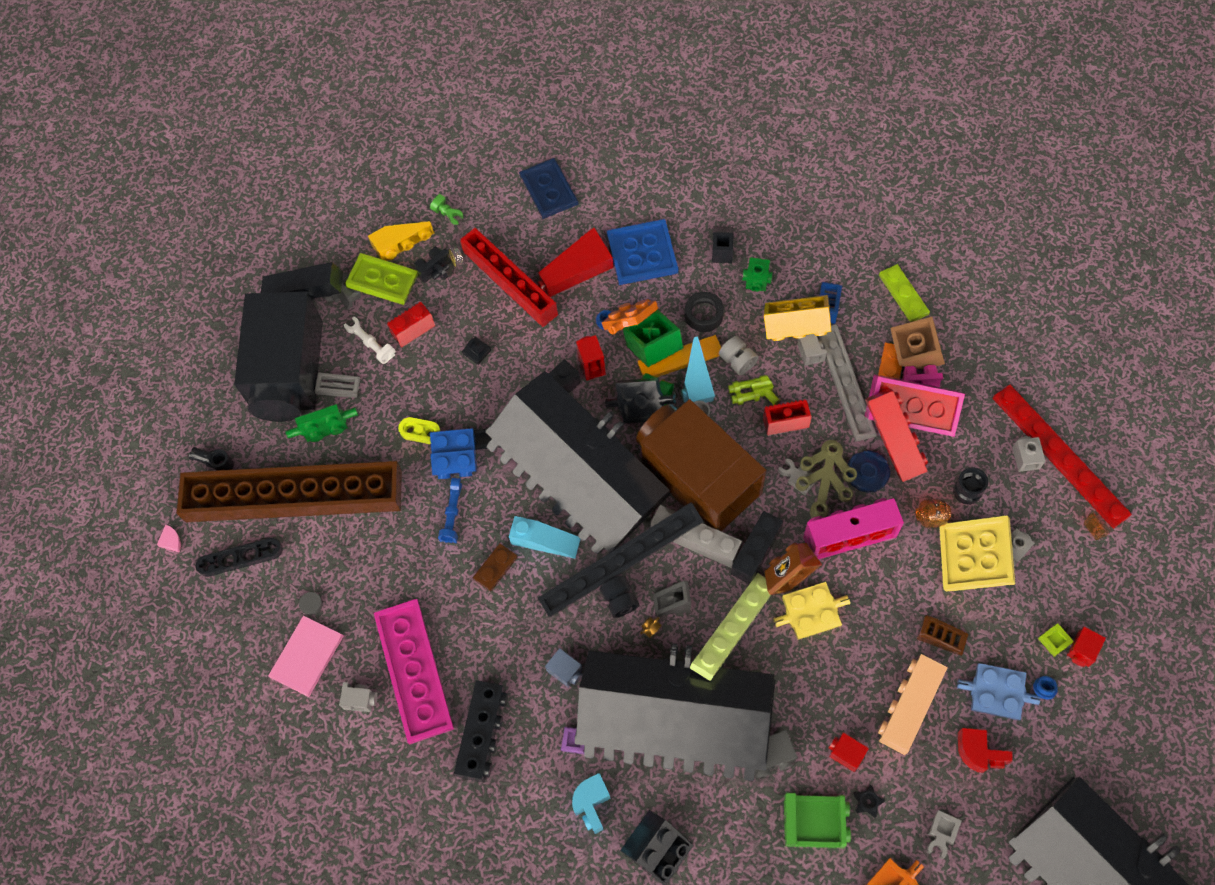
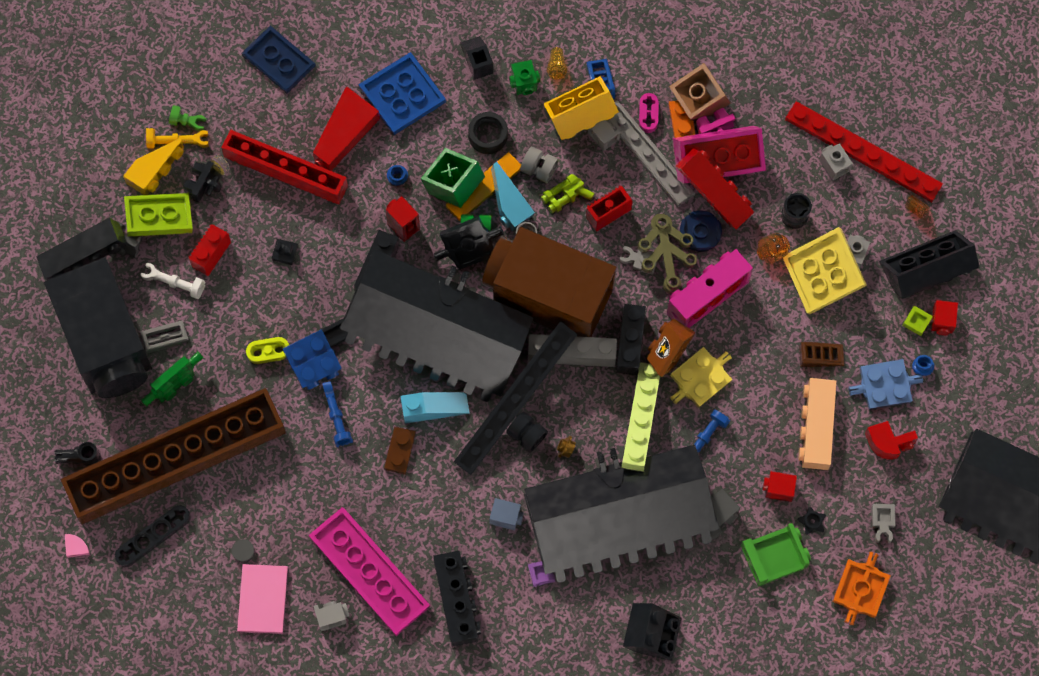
camera: 30 degrees left, 5 degrees up
(409, 216) = (194, 139): none -> yellow piece
(586, 797) = (574, 617): medium azure brick -> none
(629, 315) = (421, 164): orange plate -> none
(673, 599) = (576, 415): dark grey slope -> none
(790, 671) = (718, 419): none -> blue piece
(792, 276) = (556, 65): none -> clear yellow cone
(857, 344) = (643, 112): none -> dark pink beam
(904, 293) = (667, 46): lime plate -> none
(1090, 588) = (930, 264): none -> black slope

